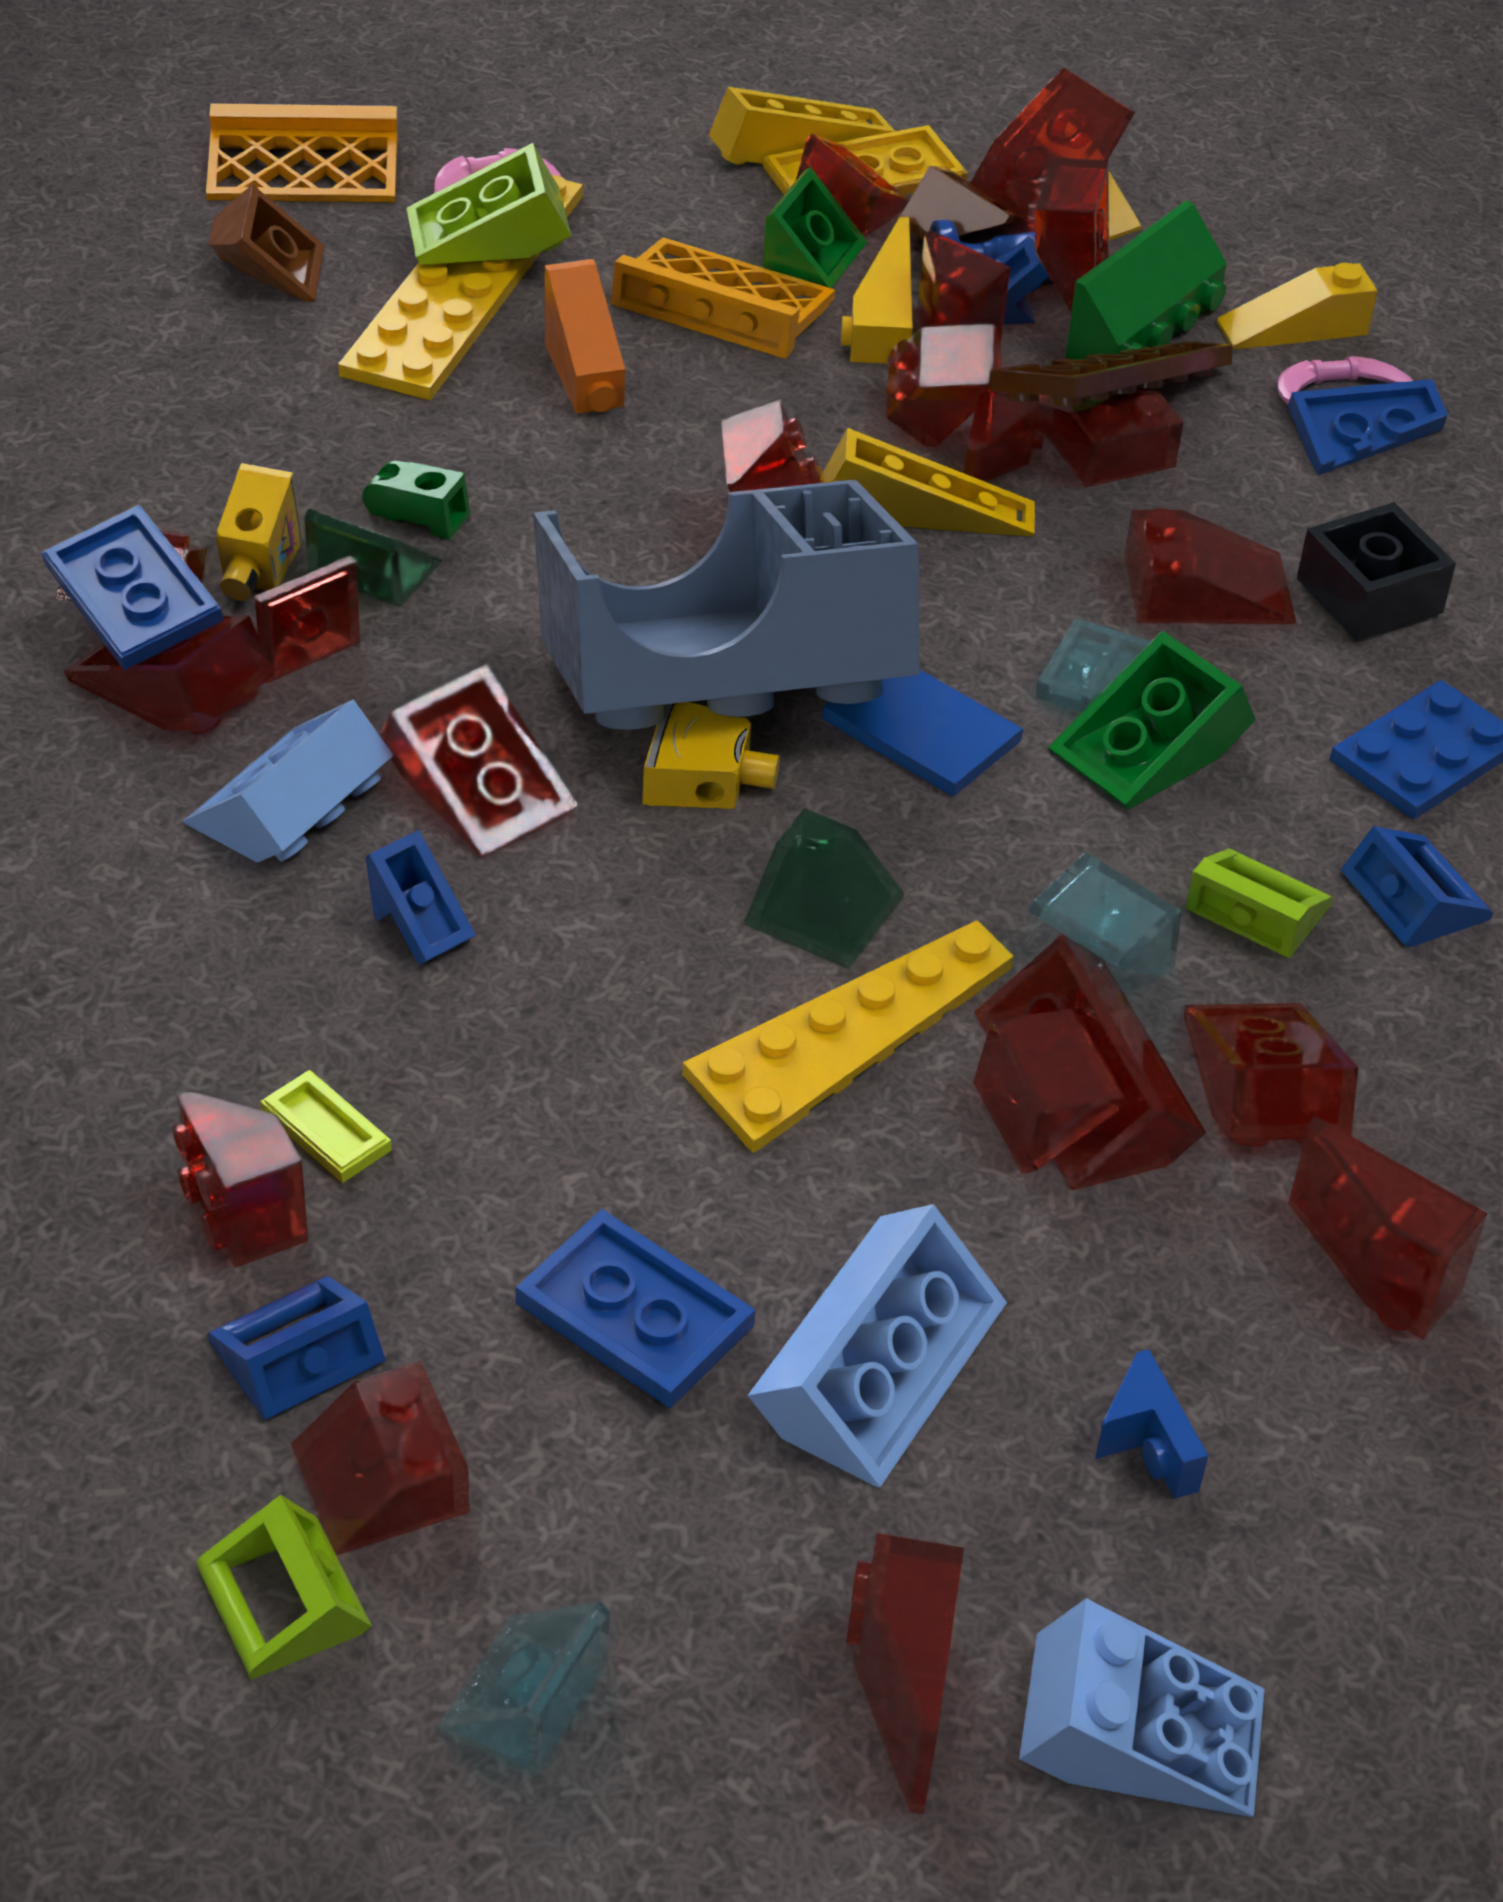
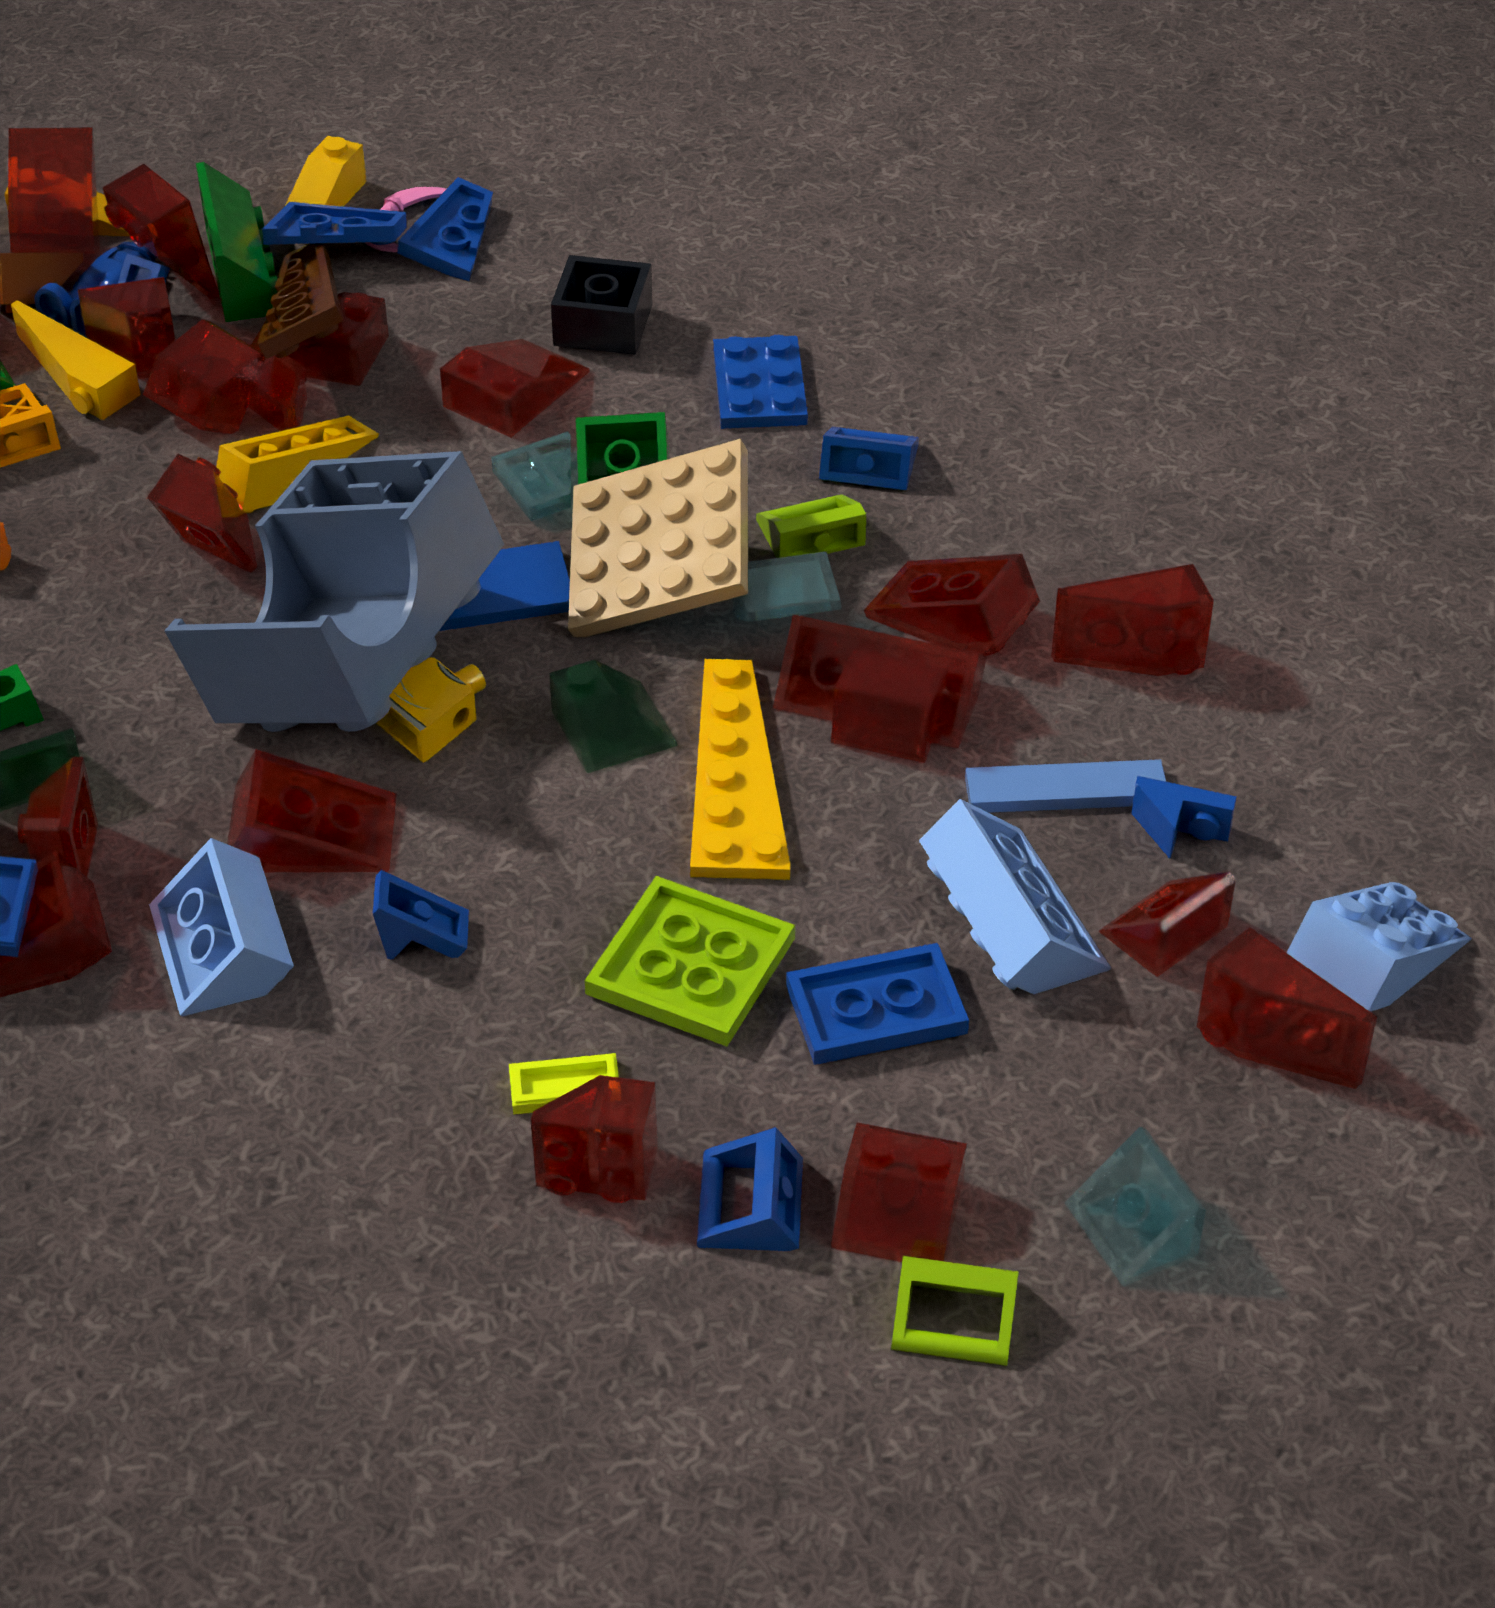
camera: 50 degrees left, 0 degrees up
(560, 1131) = (690, 960): none -> lime plate
(983, 1505) = (1173, 920): none -> clear red slope
(1072, 784) = (659, 539): none -> tan plate
(1102, 1303) = (1058, 785): none -> medium blue tile
(1251, 337) = (333, 224): none -> blue wing

